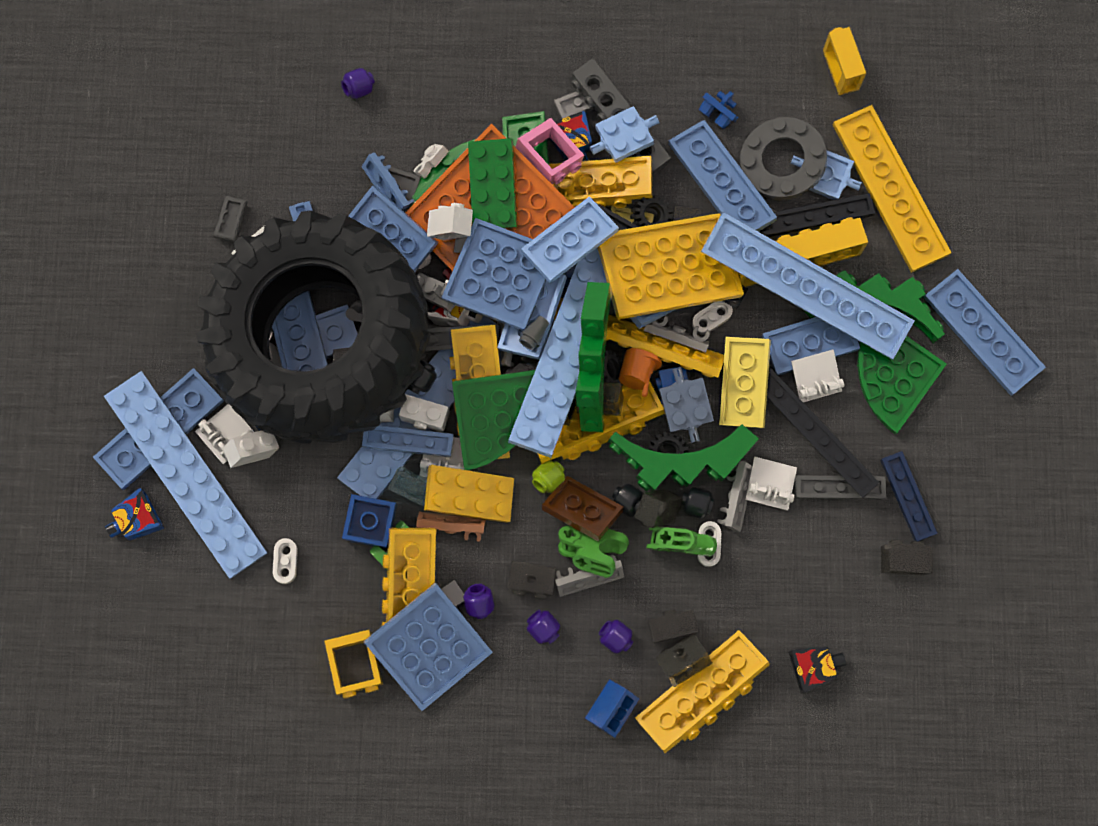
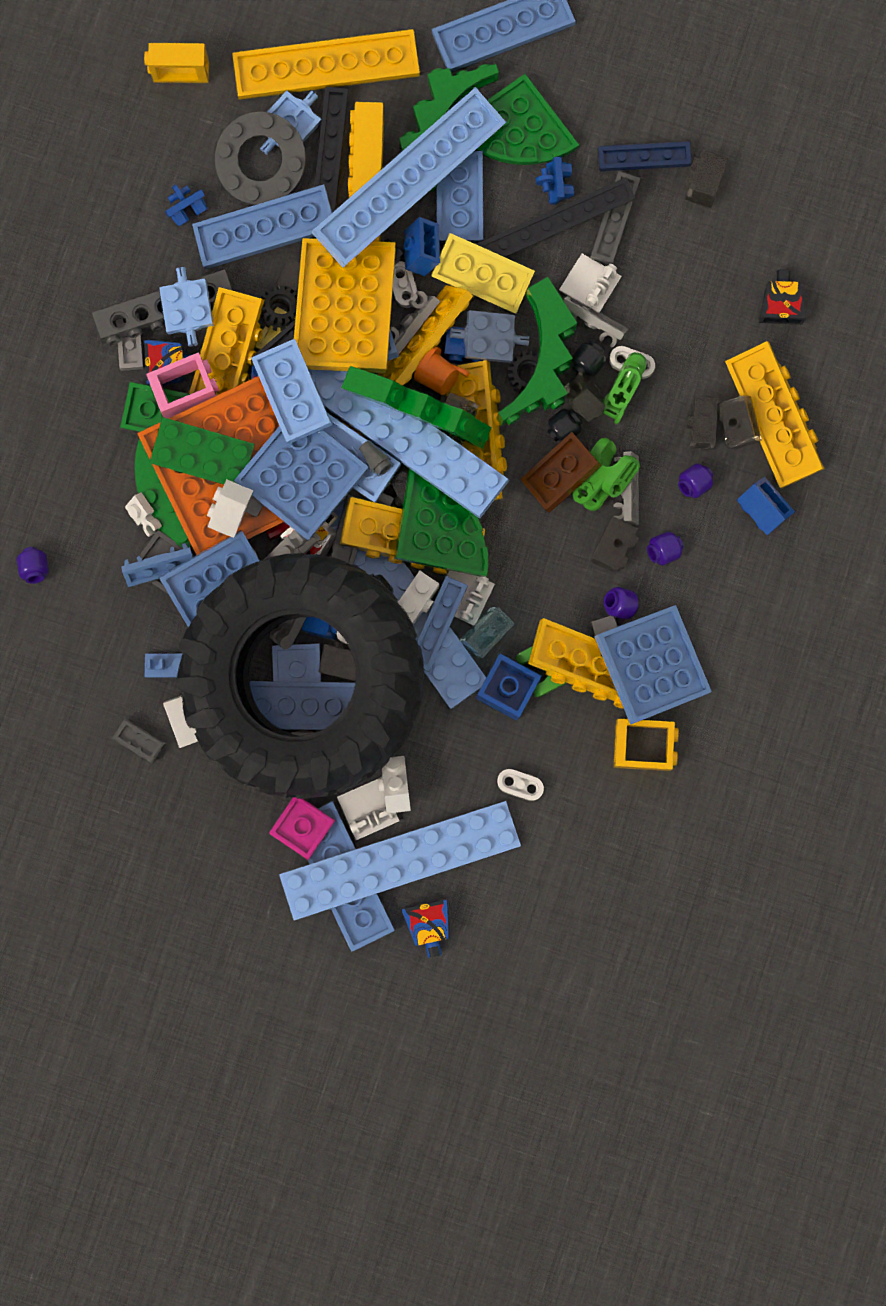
camera: 75 degrees left, 5 degrees up
(189, 380) = (302, 827): none -> dark pink tile
(451, 523) = (534, 607): nougat plate -> none
(469, 494) = (511, 579): yellow plate -> none
(548, 476) = (517, 497): lime head -> none
(750, 320) = (421, 246): none -> blue brick
(817, 376) = (497, 202): white hinge -> none
(865, 420) = (552, 180): none -> blue hips

